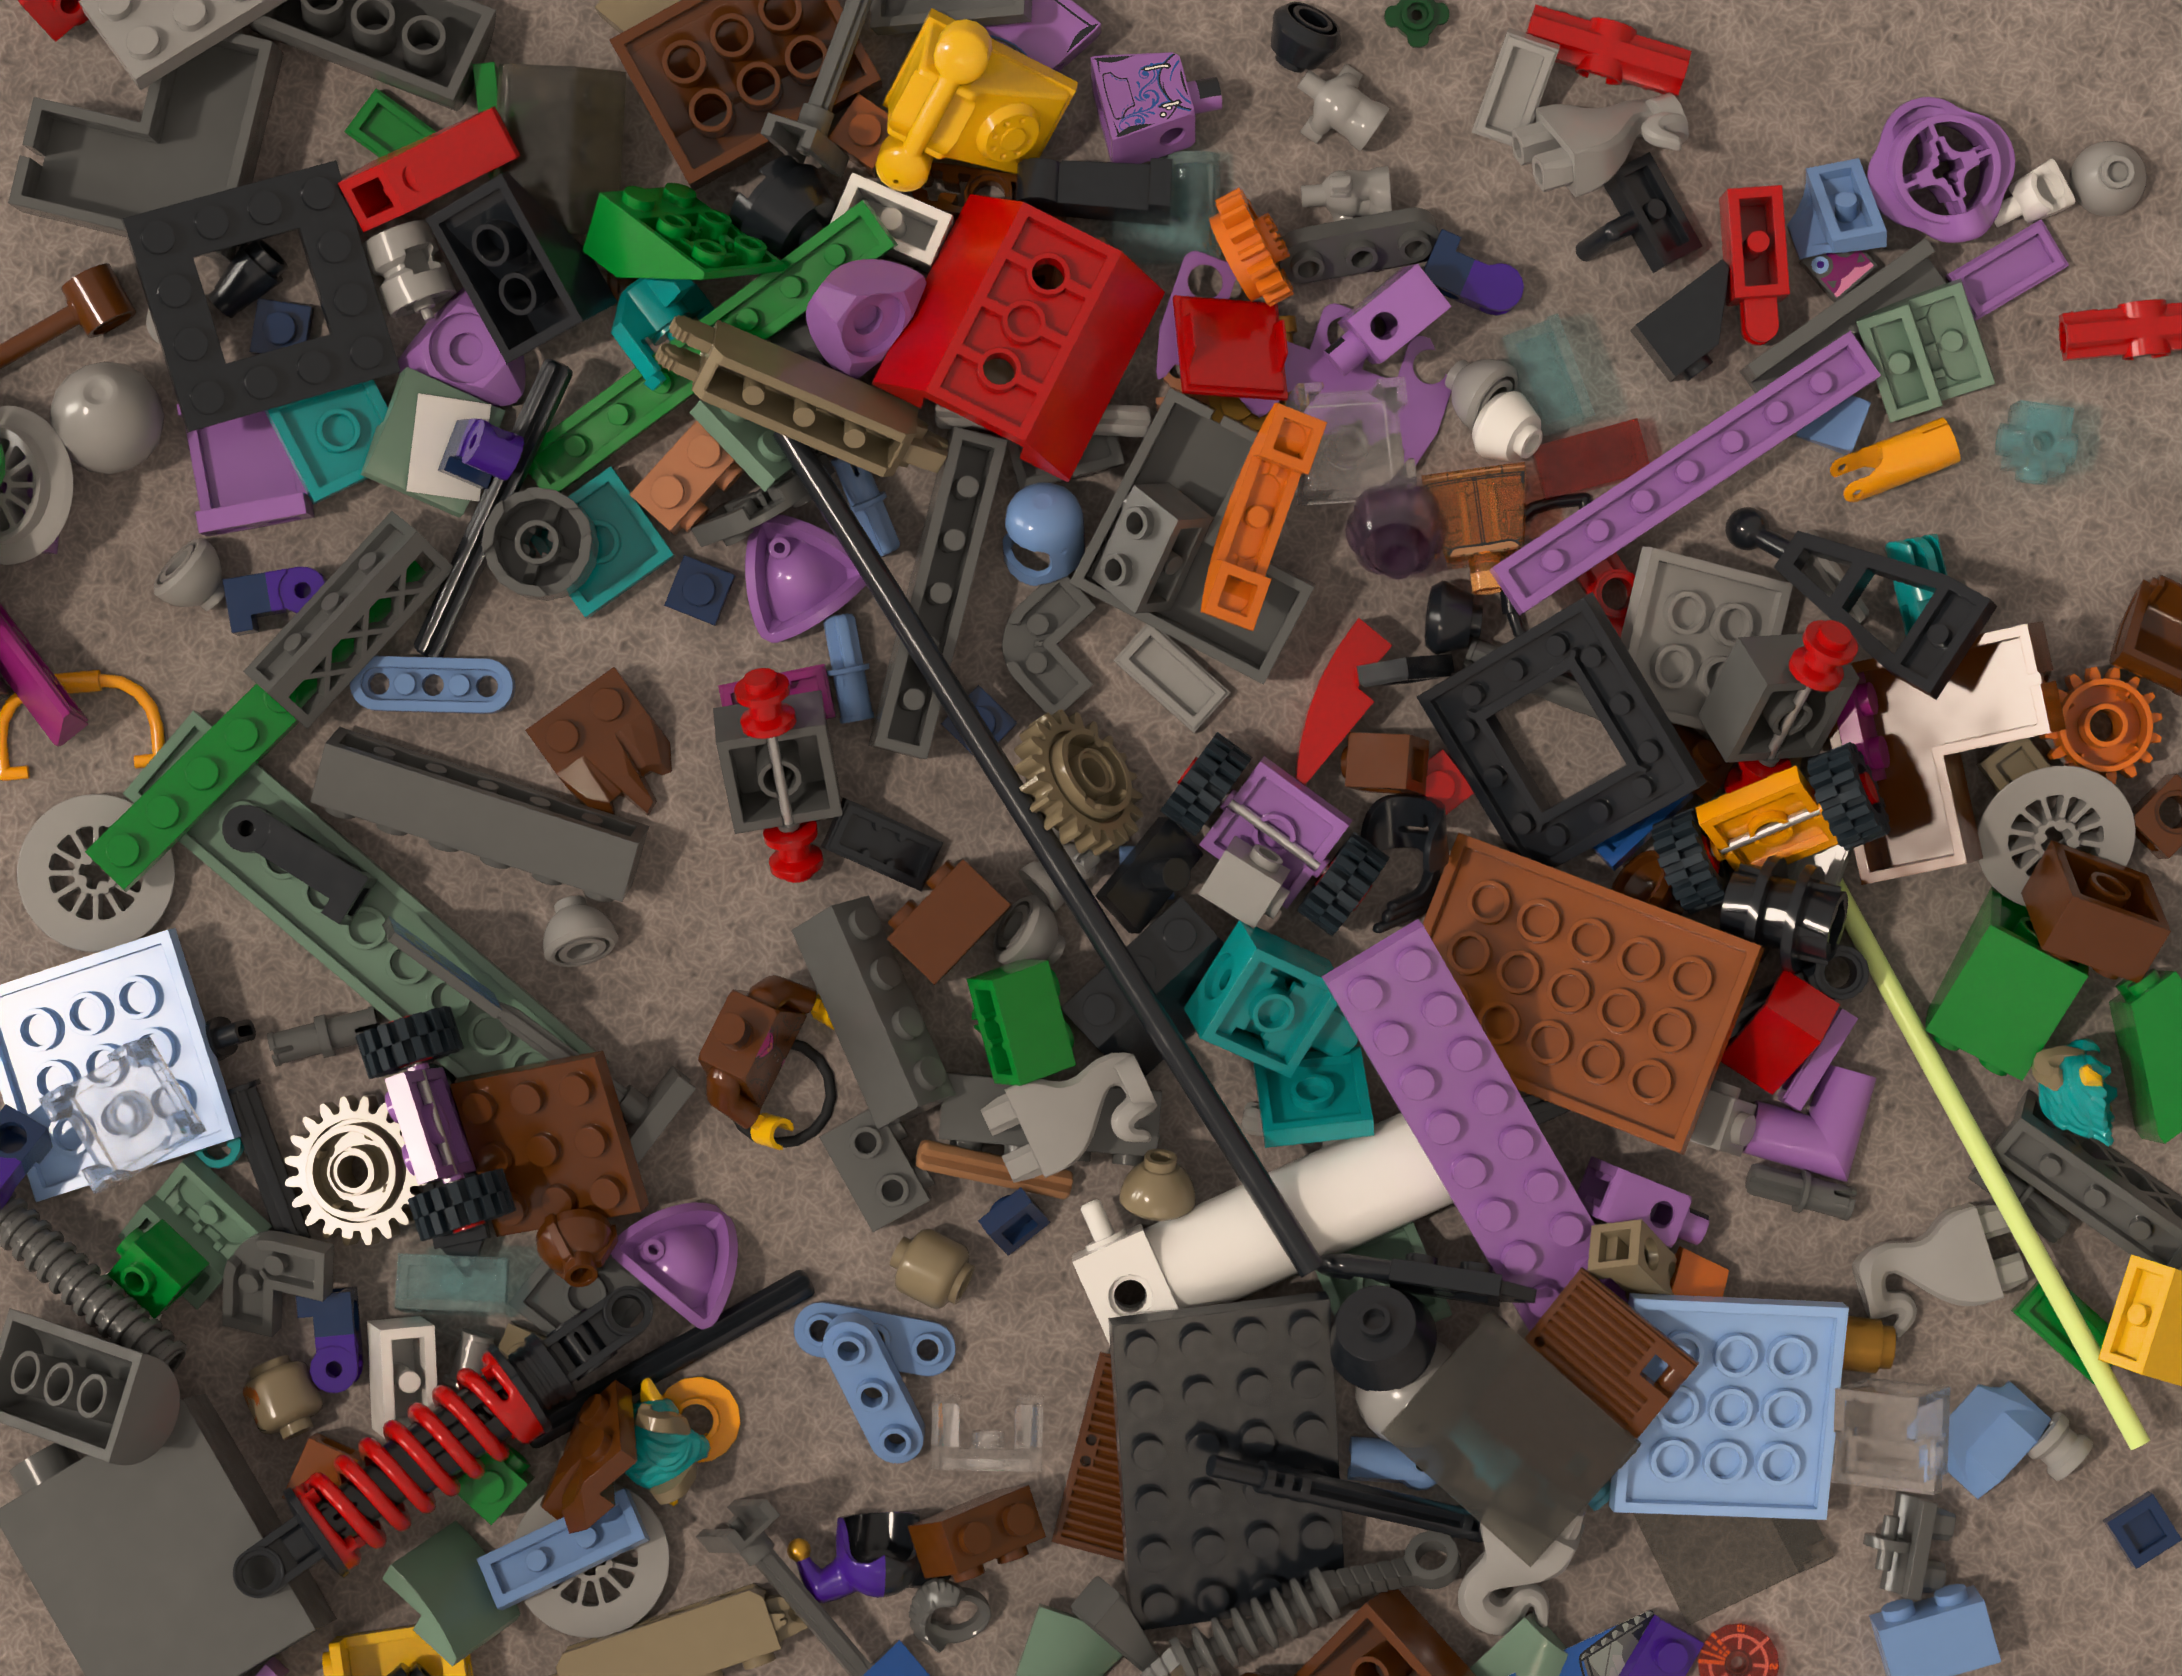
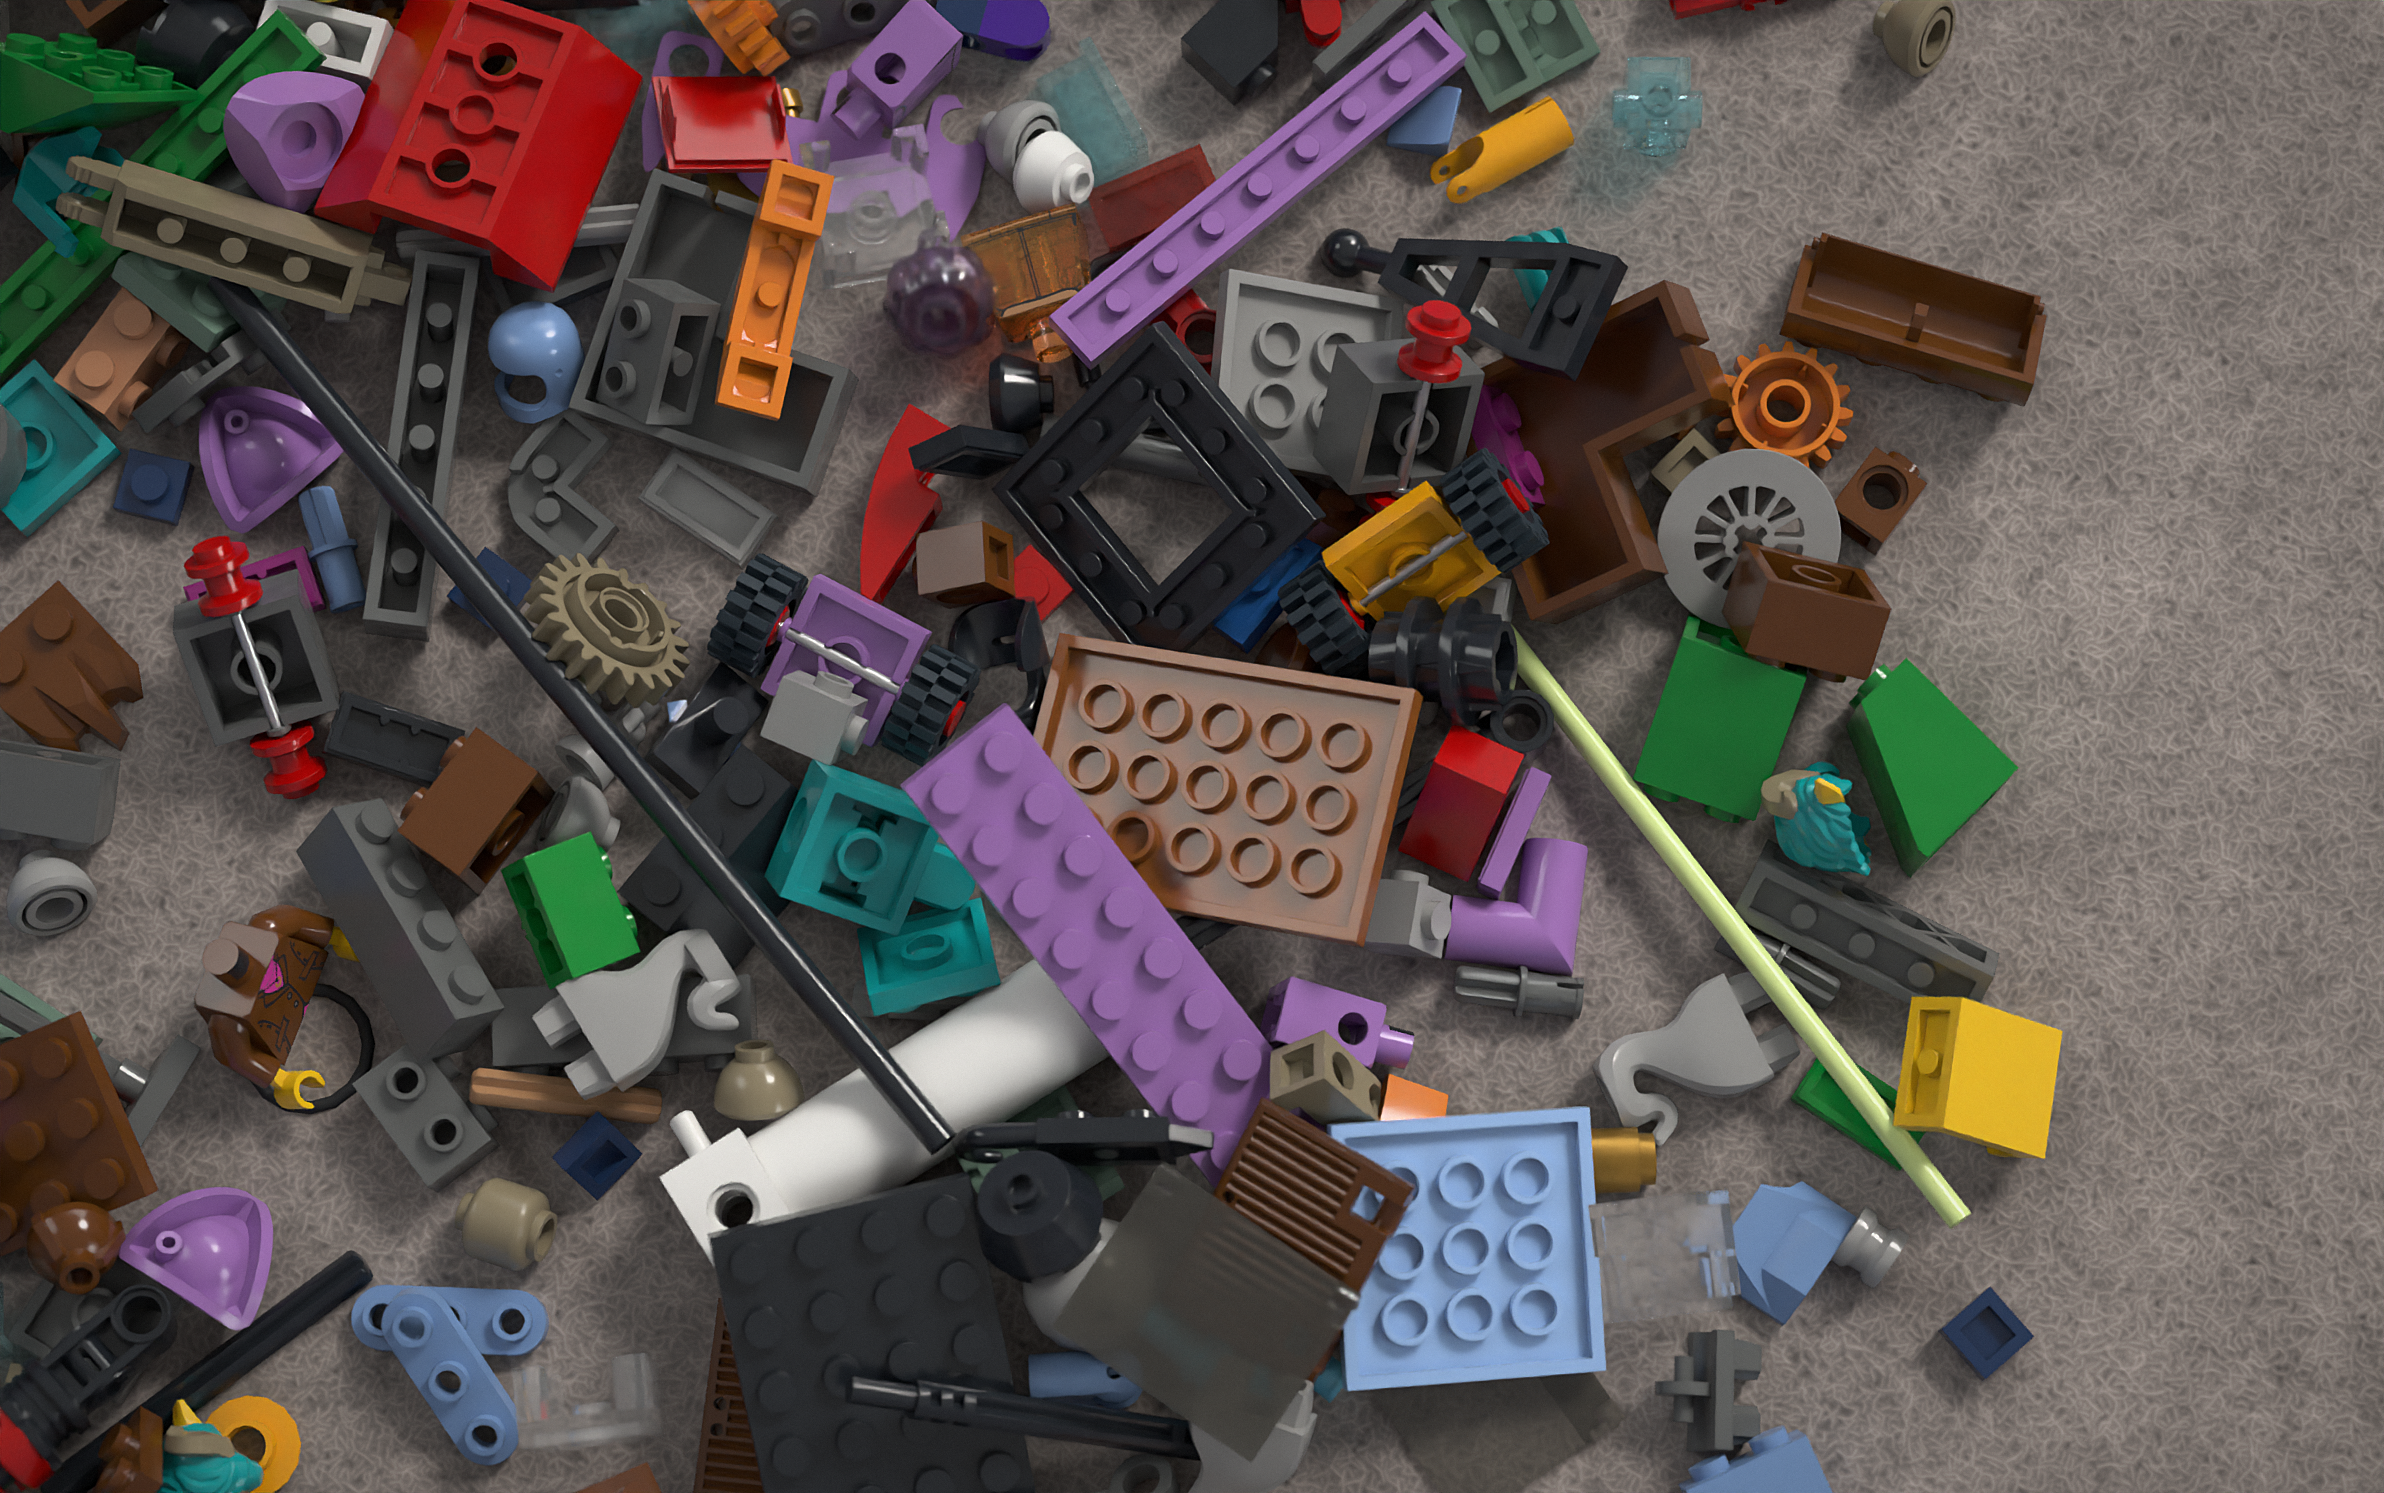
camera: 10 degrees left, 10 degrees down
(867, 505) = (333, 358): medium blue axle -> none

